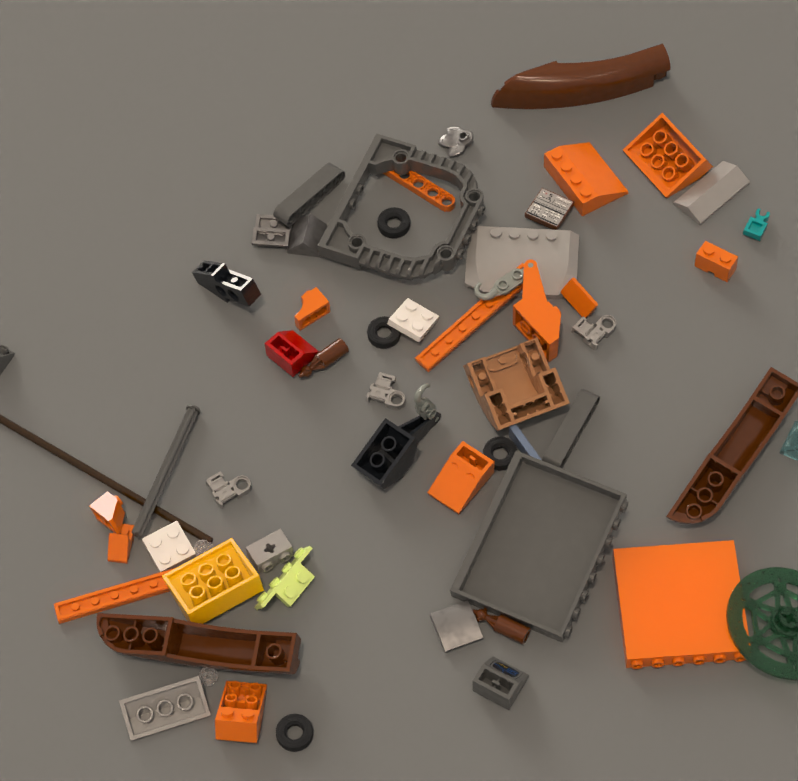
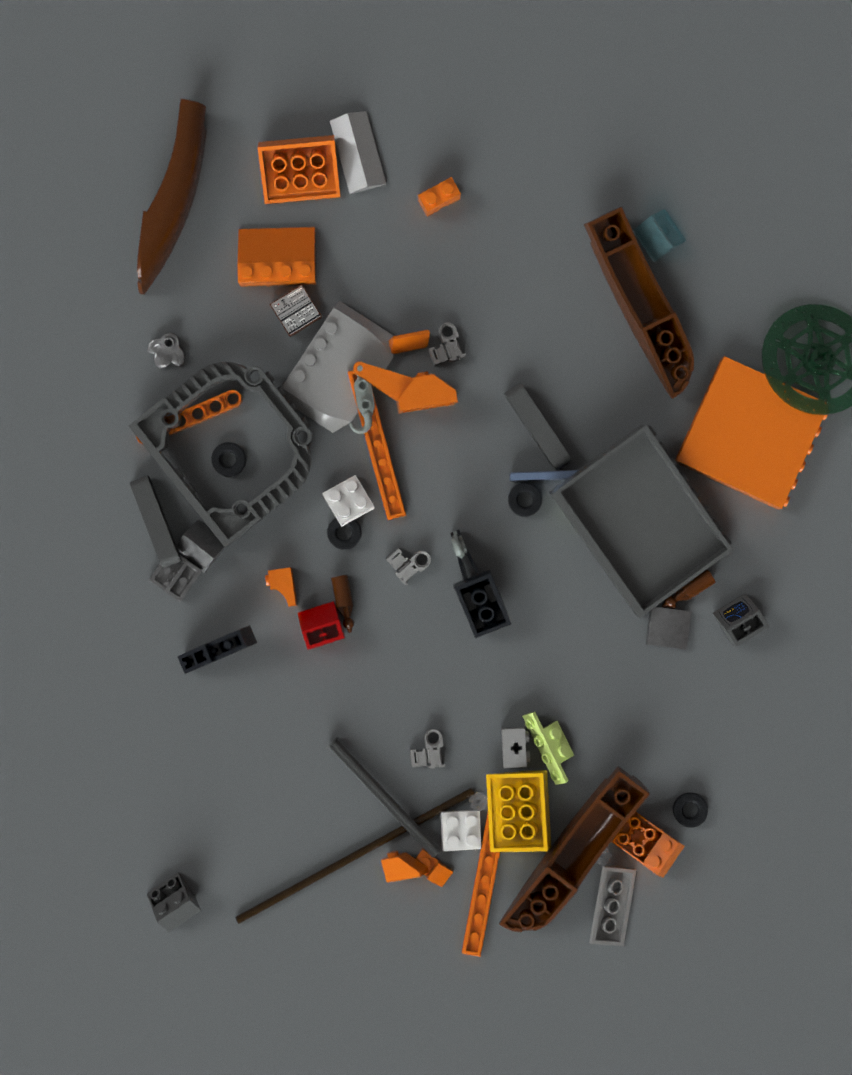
camera: 65 degrees left, 30 degrees up
(461, 477) = (535, 548): orange slope -> none
(515, 384) = (470, 449): medium nougat slope -> none
(756, 226) = (420, 136): teal plate -> none

